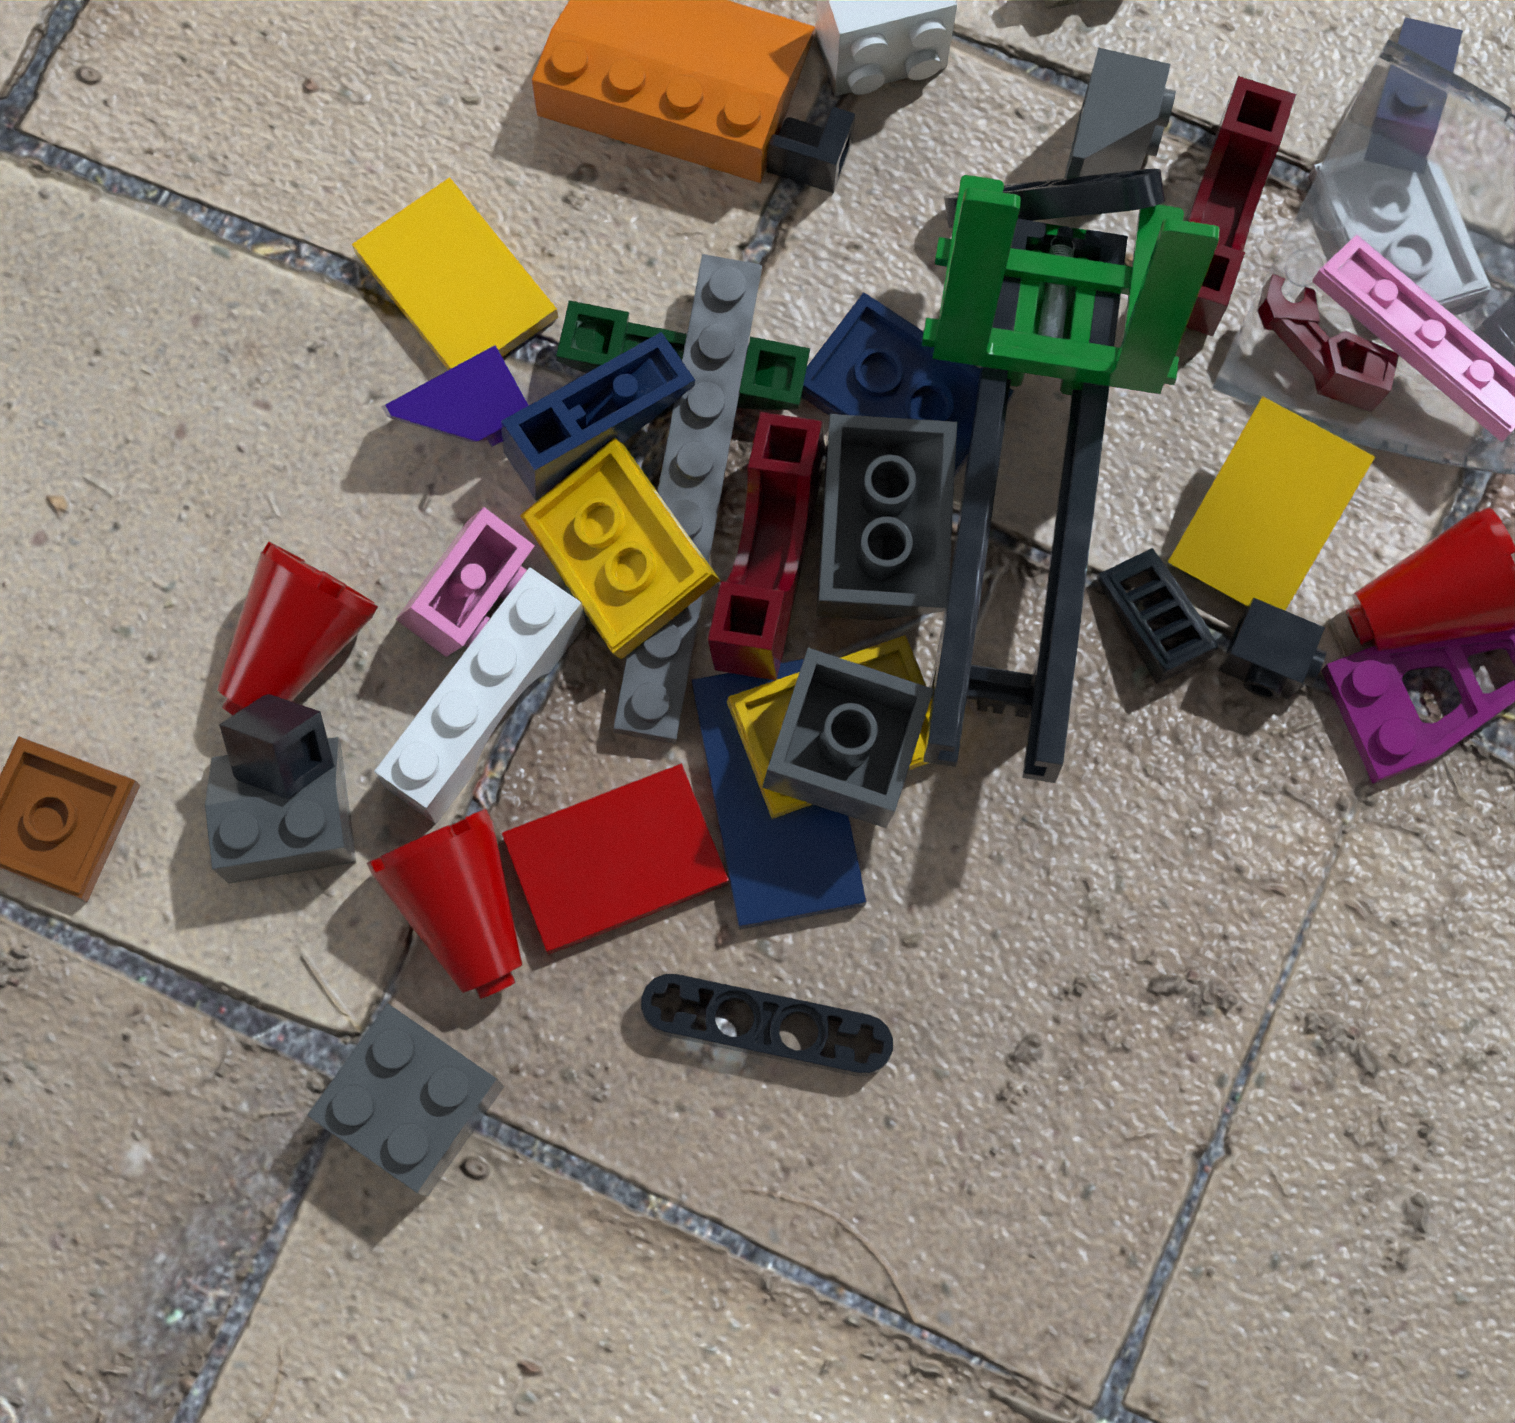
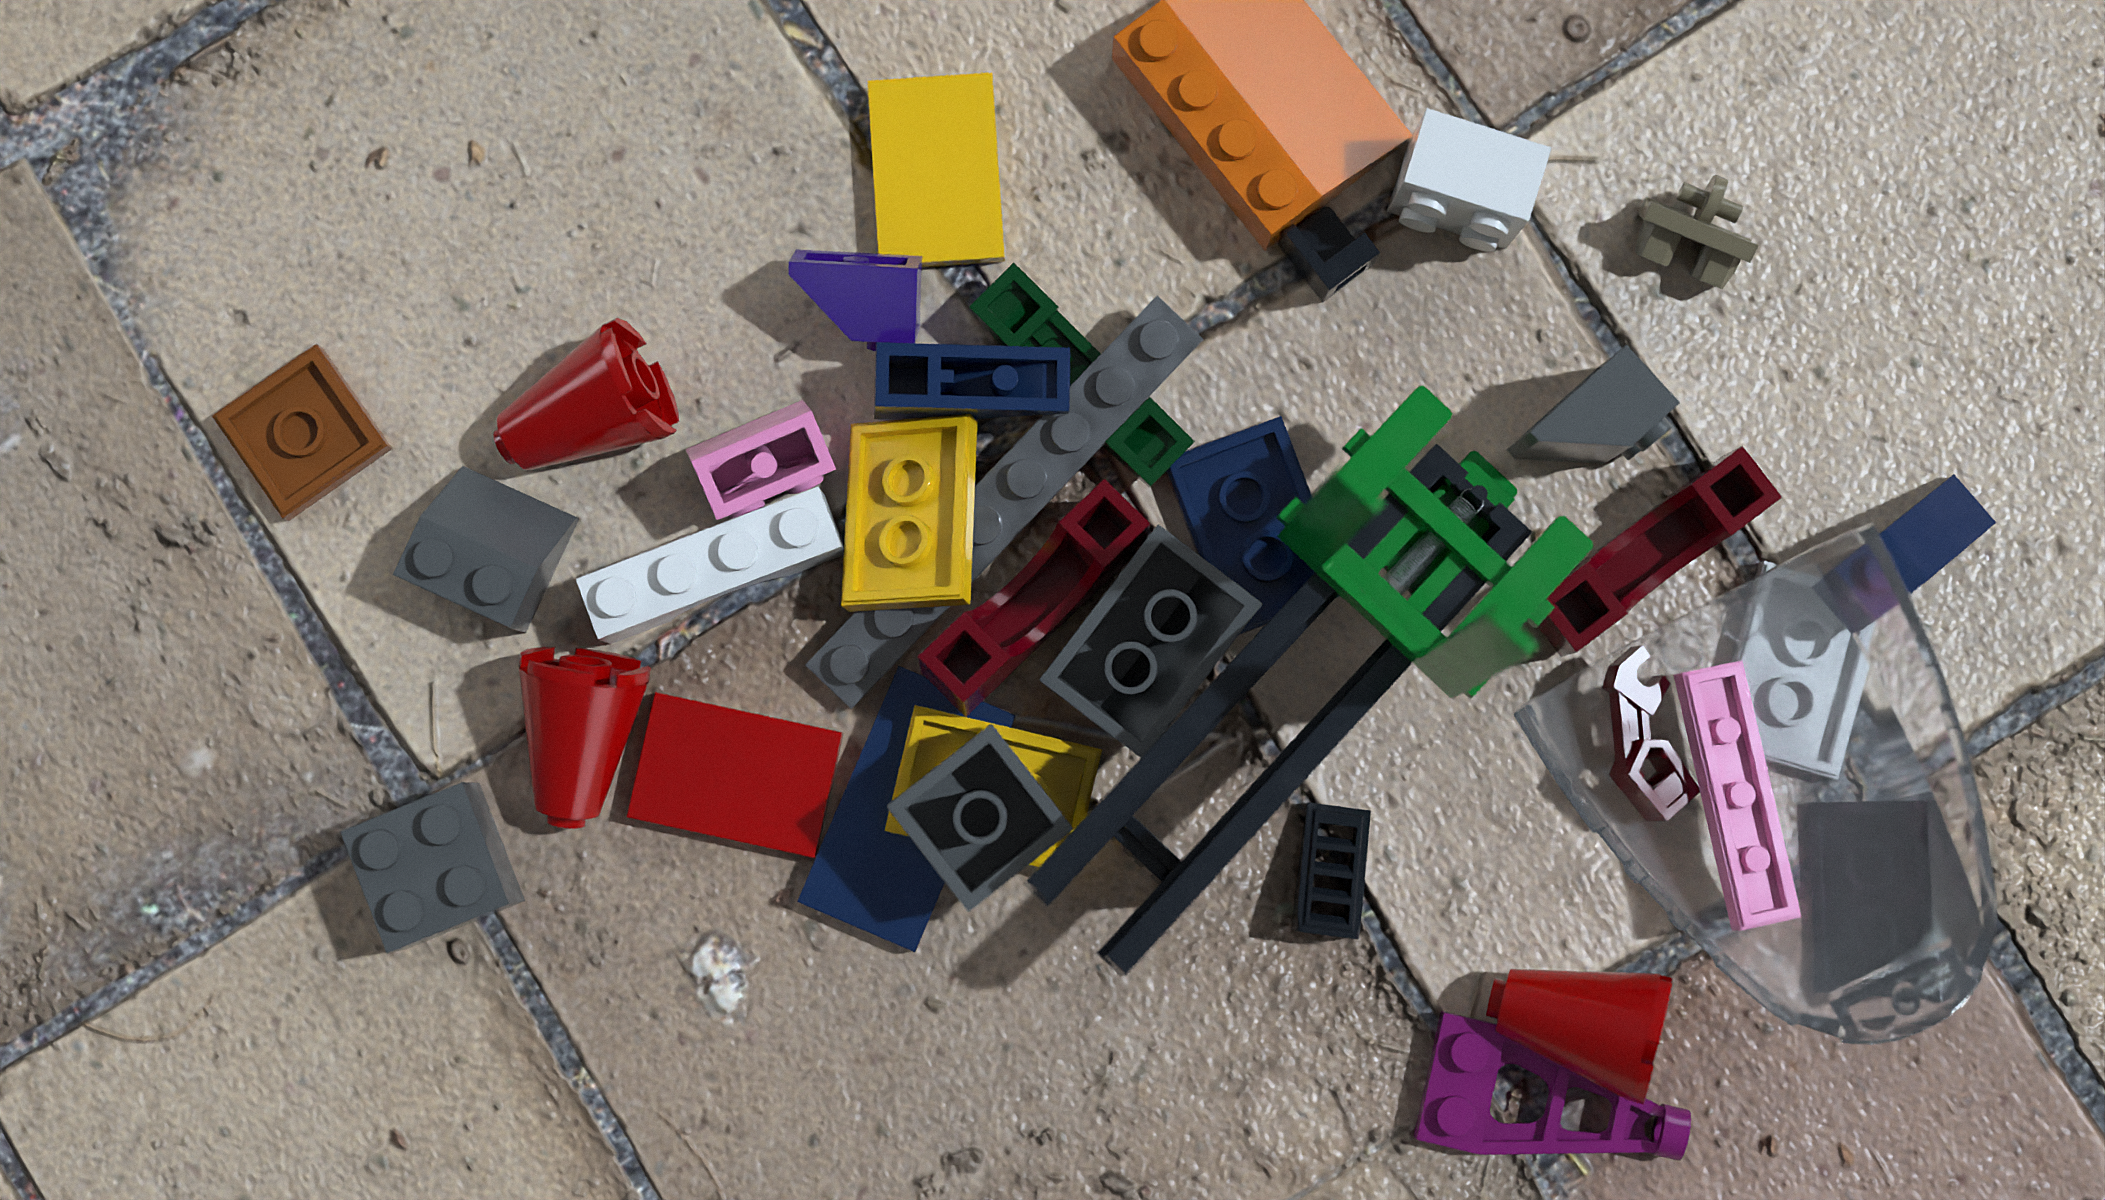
camera: 35 degrees right, 10 degrees up
(277, 745) = (511, 503): black panel -> none
(764, 1035) = (758, 1004): black beam -> none
(1081, 195) = (1506, 460): black beam -> none
(1271, 507) = (1490, 851): yellow tile -> none
(1273, 651) = (1404, 973): black brick -> none

